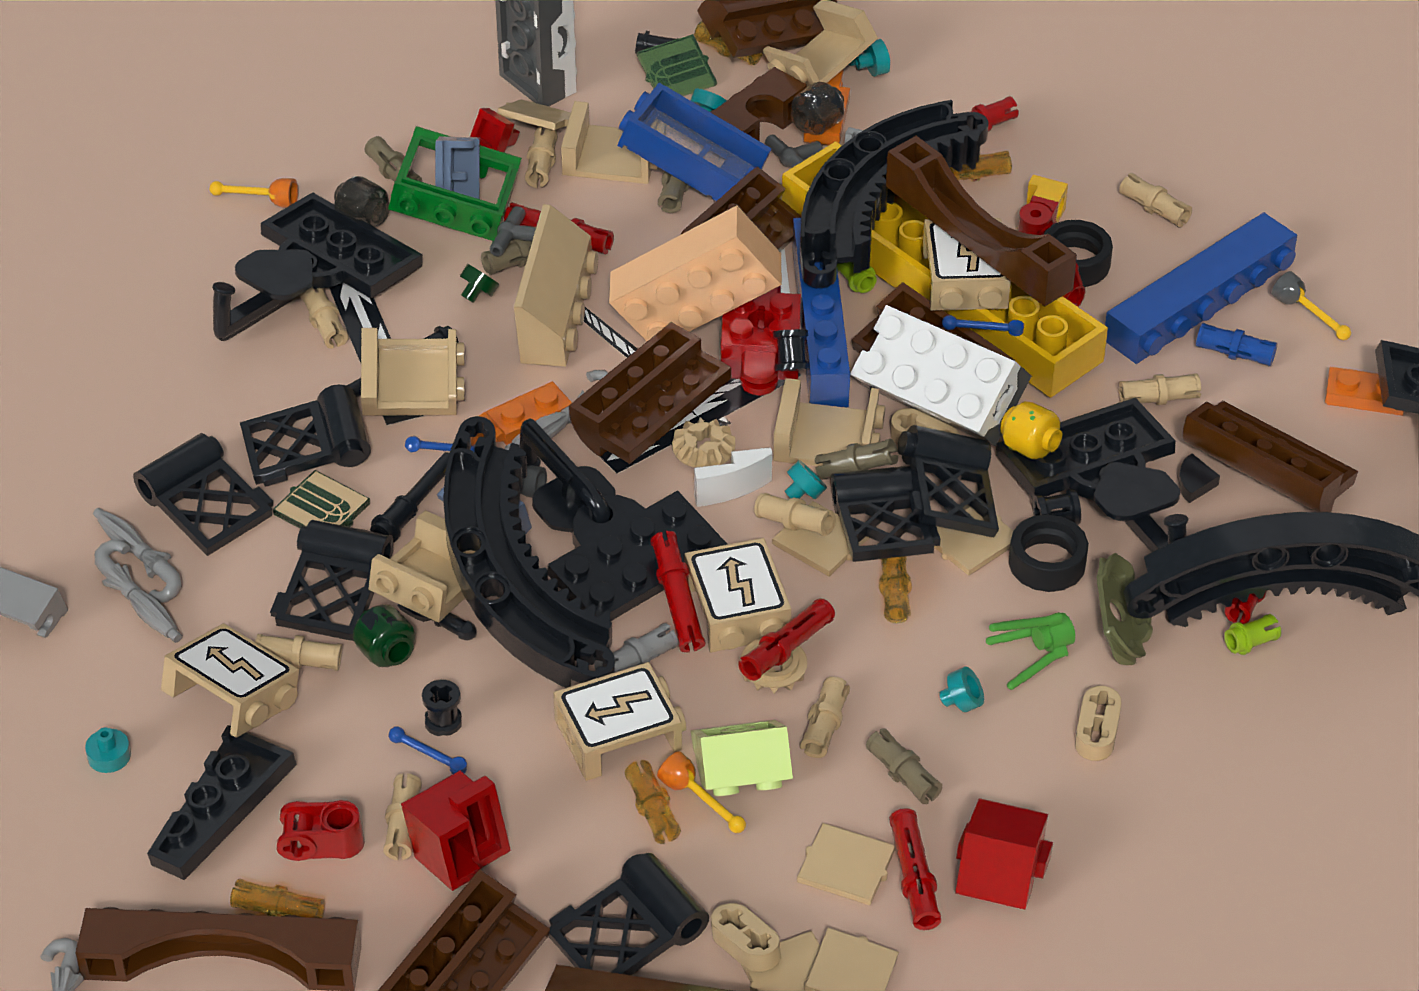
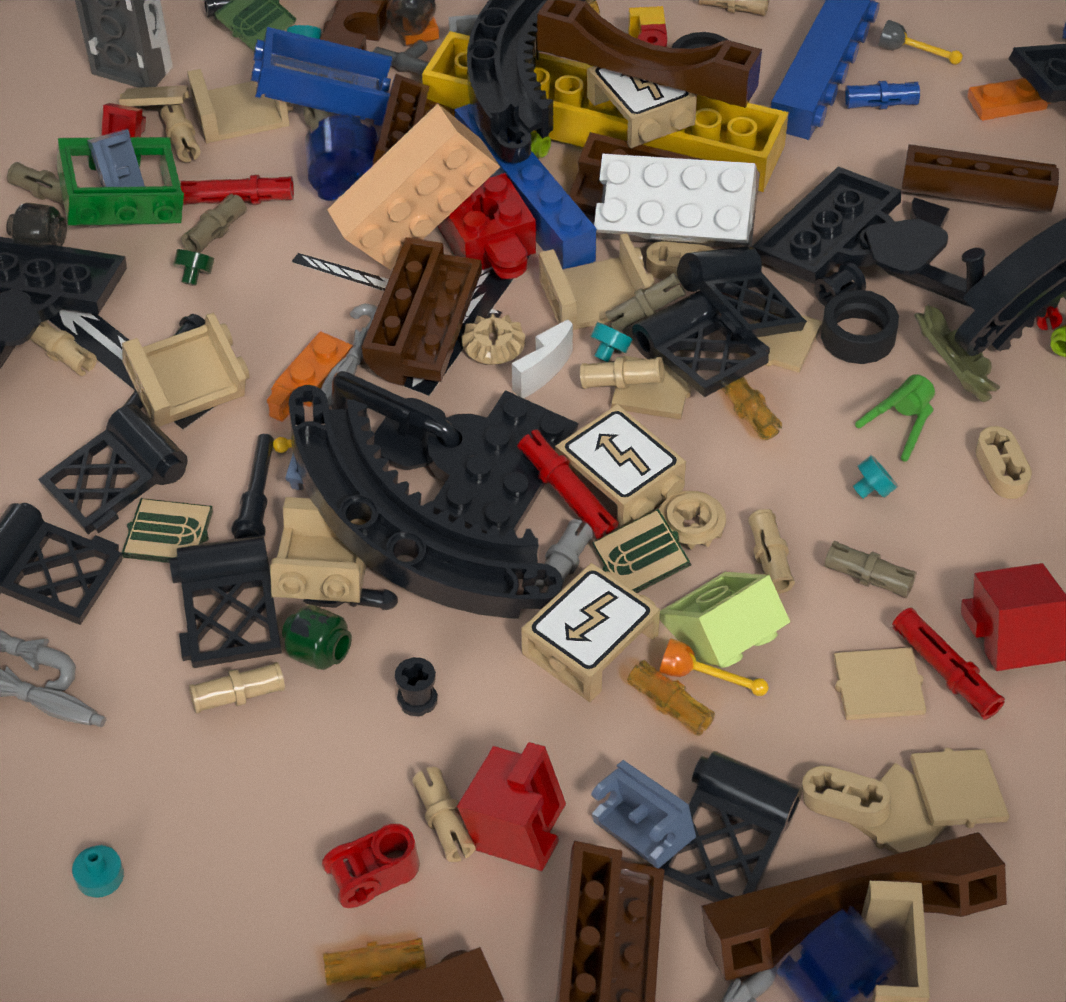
camera: 25 degrees left, 5 degrees up
(227, 791) = (251, 865): black wing -> none
(235, 671) = (192, 735): panel -> none
(414, 443) = (223, 437): blue hinge -> none
(456, 764) = (460, 738): blue hinge -> none
(510, 230) = (198, 206): dark grey piece -> none
(553, 290) = (277, 248): tan slope -> none
(560, 880) = (643, 814): none -> sand blue hinge
(658, 219) = (339, 154): none -> clear blue brick
(707, 675) = (642, 552): none -> piece
(777, 646) = (692, 519): red pin -> none
(791, 350) = (534, 224): black bush -> none
(1014, 327) = (714, 138): blue hinge -> none
(1031, 430) = (782, 223): yellow head -> none
(1161, 389) = (850, 152): tan pin -> none

